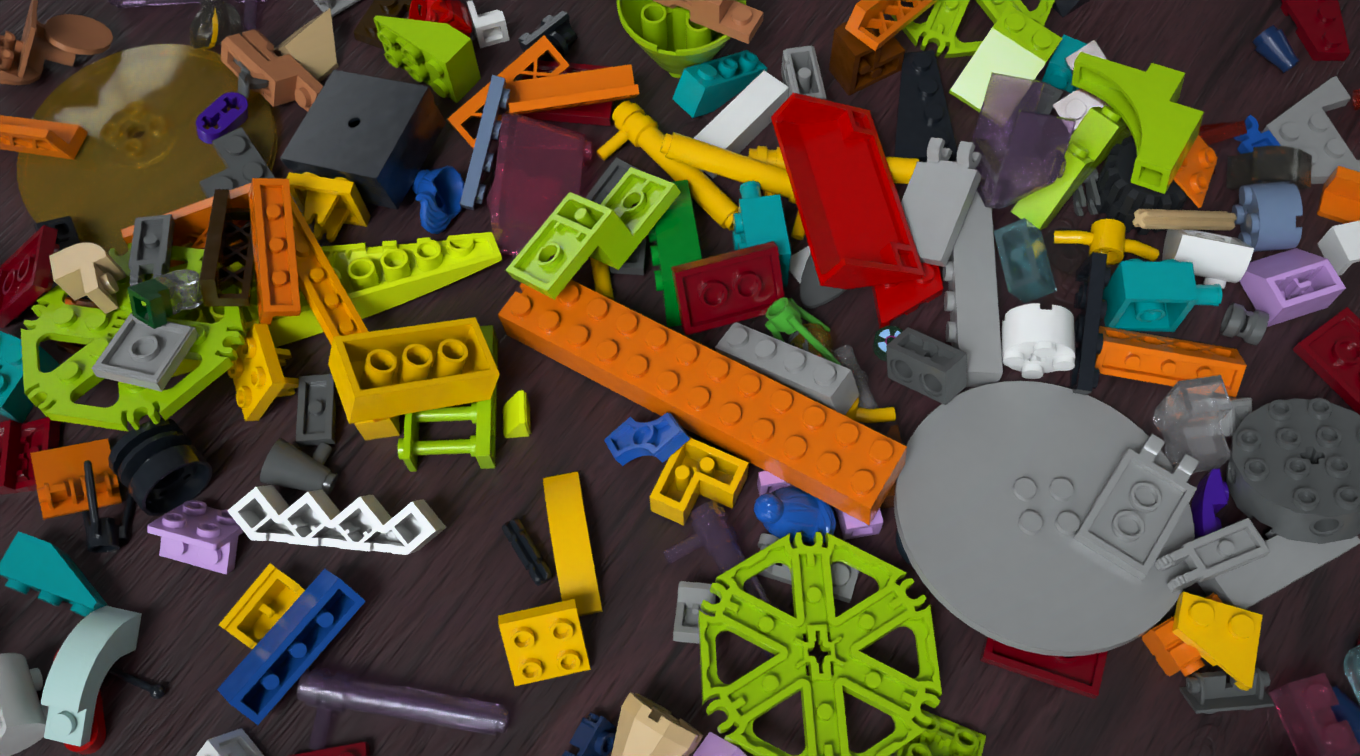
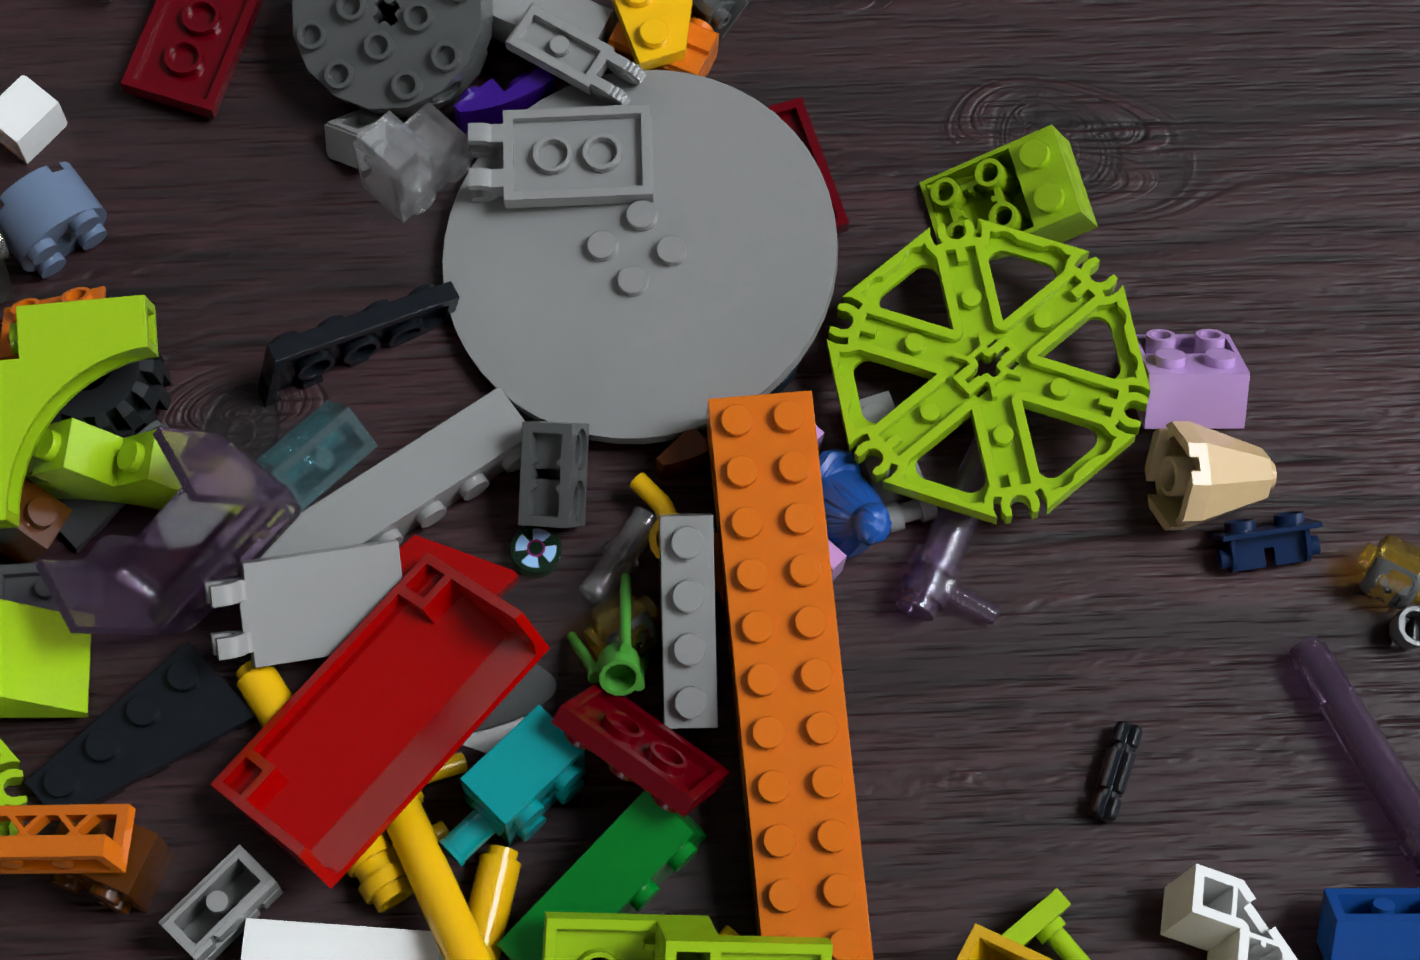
camera: 135 degrees left, 5 degrees up
(517, 416) = (977, 907): neon yellow slope -> none
(544, 642) = (1202, 657): yellow plate -> none
(571, 542) = (1061, 734): yellow slope -> none
(653, 438) = (885, 701): blue tile -> none
(688, 605) = (1038, 539): light grey bracket -> none
(696, 471) = (893, 648): yellow brick -> none
(1038, 340) = (425, 372): white brick -> none
(1107, 237) = (207, 384): yellow piece -> none
(1154, 295) = (262, 277): teal brick -> none
(1167, 359) = (335, 226): orange fence -> none
(1184, 219) = (170, 326): tan axle -> none
(1213, 255) = (151, 257): white brick -> none
(1244, 323) = (222, 179): dark grey wheel -> none
(1291, 284) = (133, 156): lavender slope -> none

